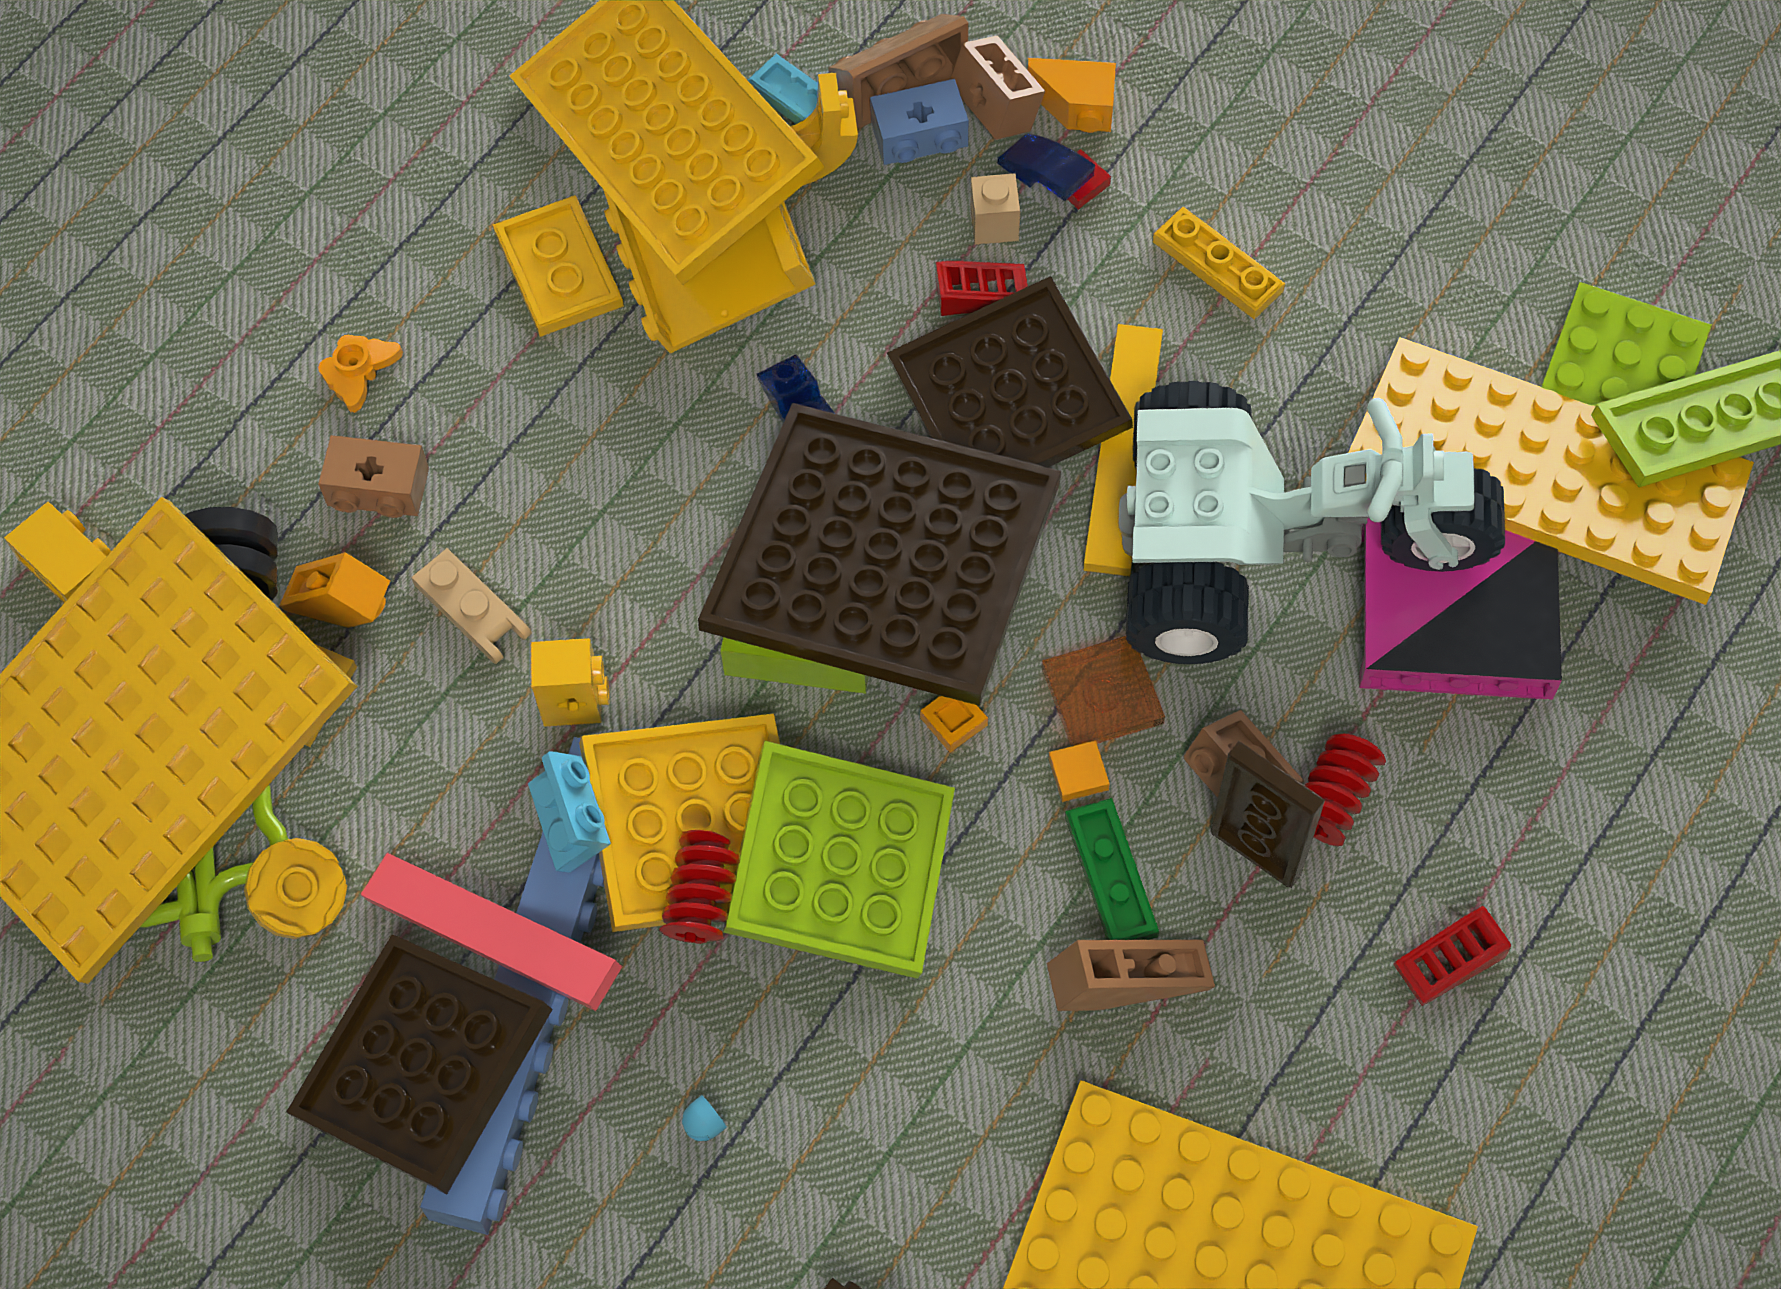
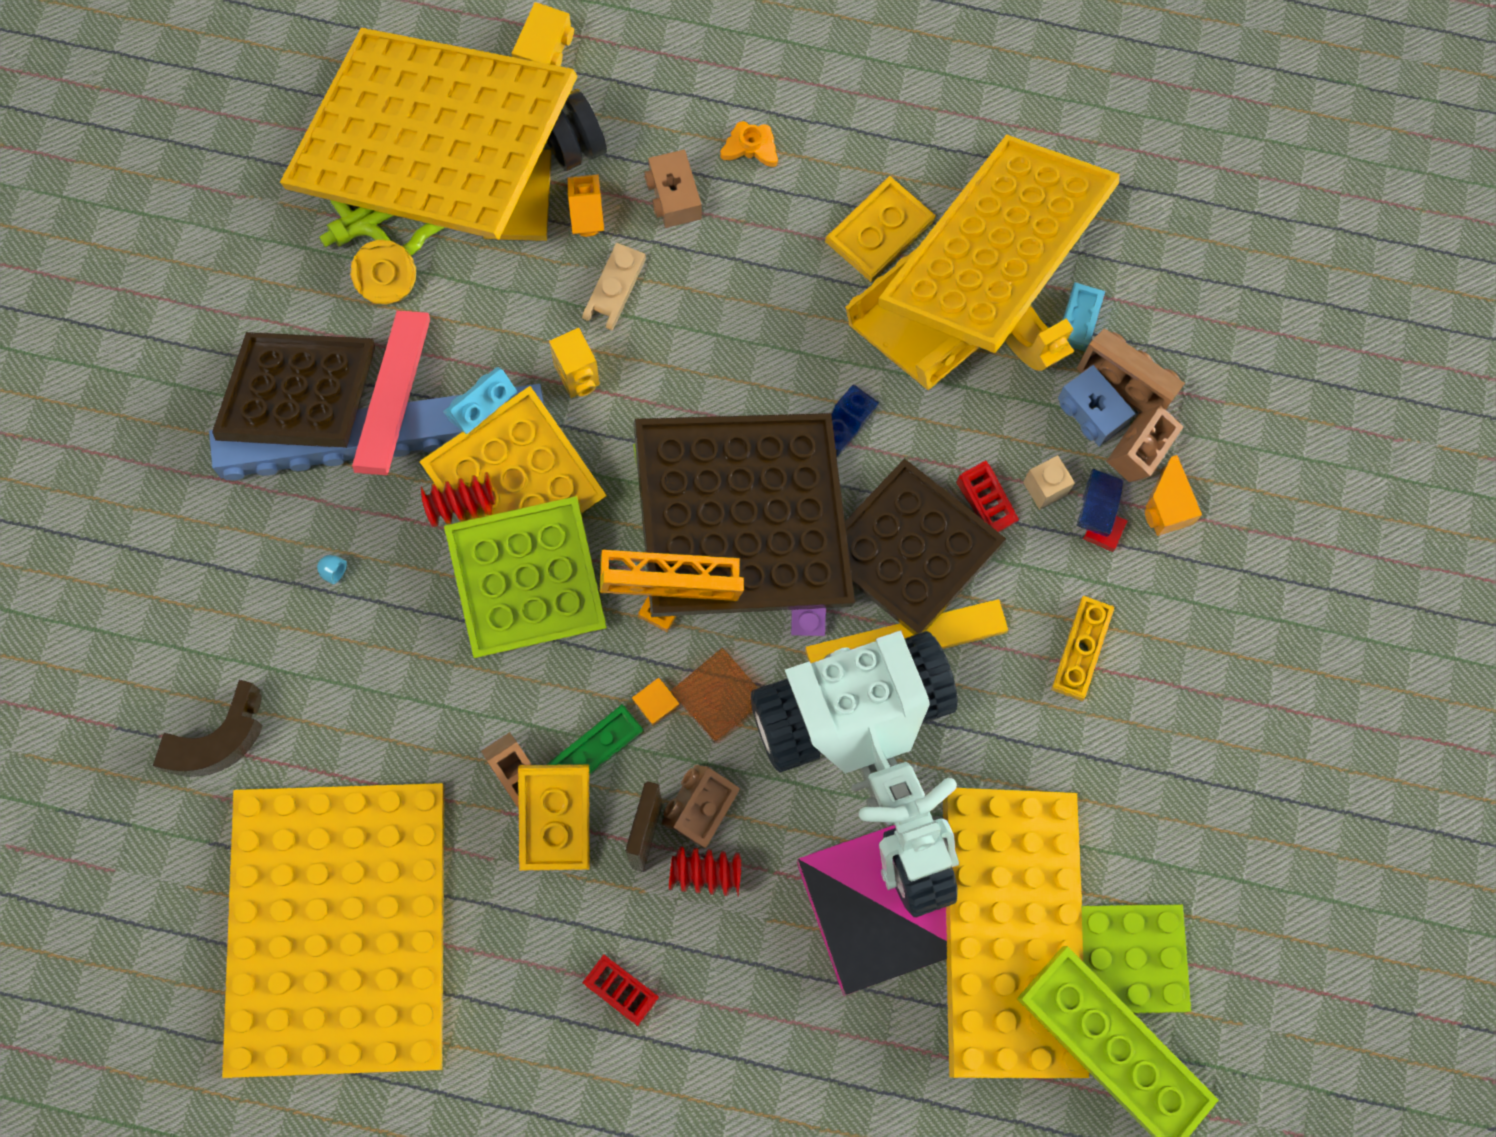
camera: 60 degrees right, 10 degrees up
(949, 658) = (670, 583): none -> light orange fence
(1054, 547) = (808, 622): none -> medium lavender plate
(1191, 945) = (553, 817): none -> yellow tile

